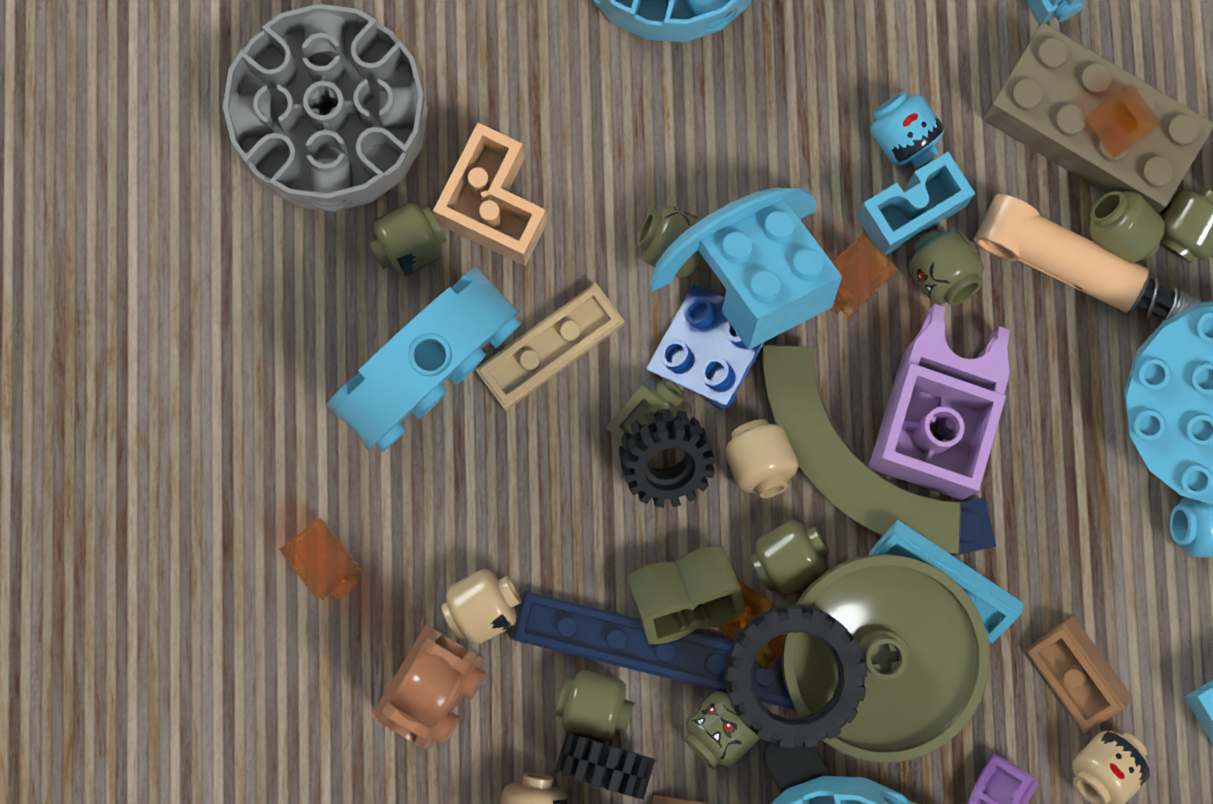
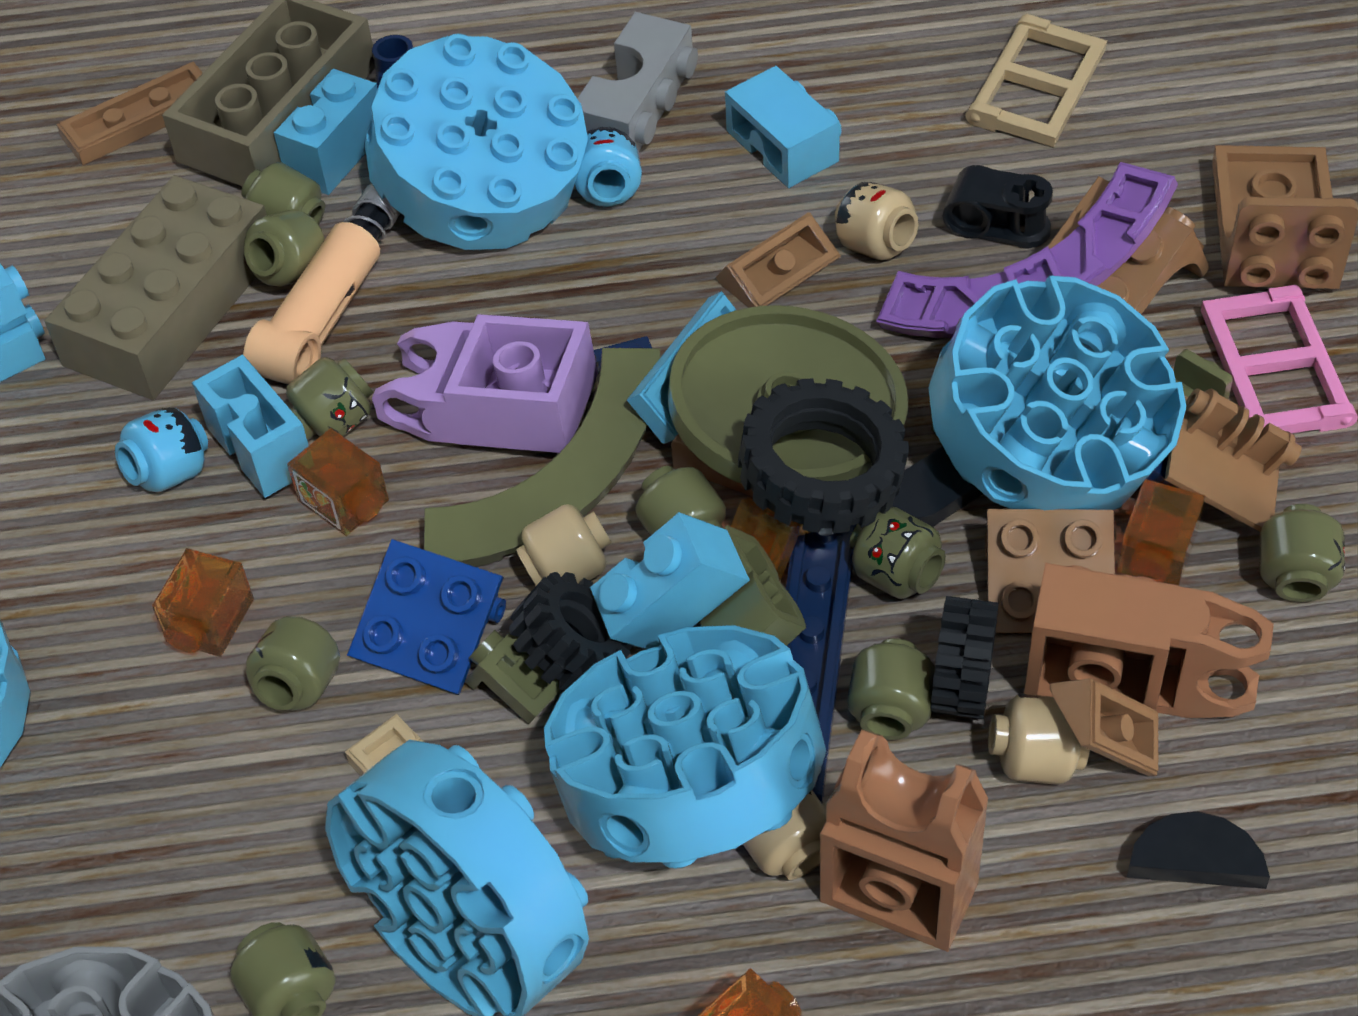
camera: 90 degrees left, 30 degrees down
(478, 198) = (231, 879): light nougat brick -> none
(543, 583) = (685, 745): none -> medium azure brick
(689, 538) = (681, 580): none -> medium azure brick
(741, 166) = (203, 603): none -> clear orange brick
(764, 261) = (315, 536): medium azure piece -> none
(1123, 120) = (165, 231): clear orange slope -> none

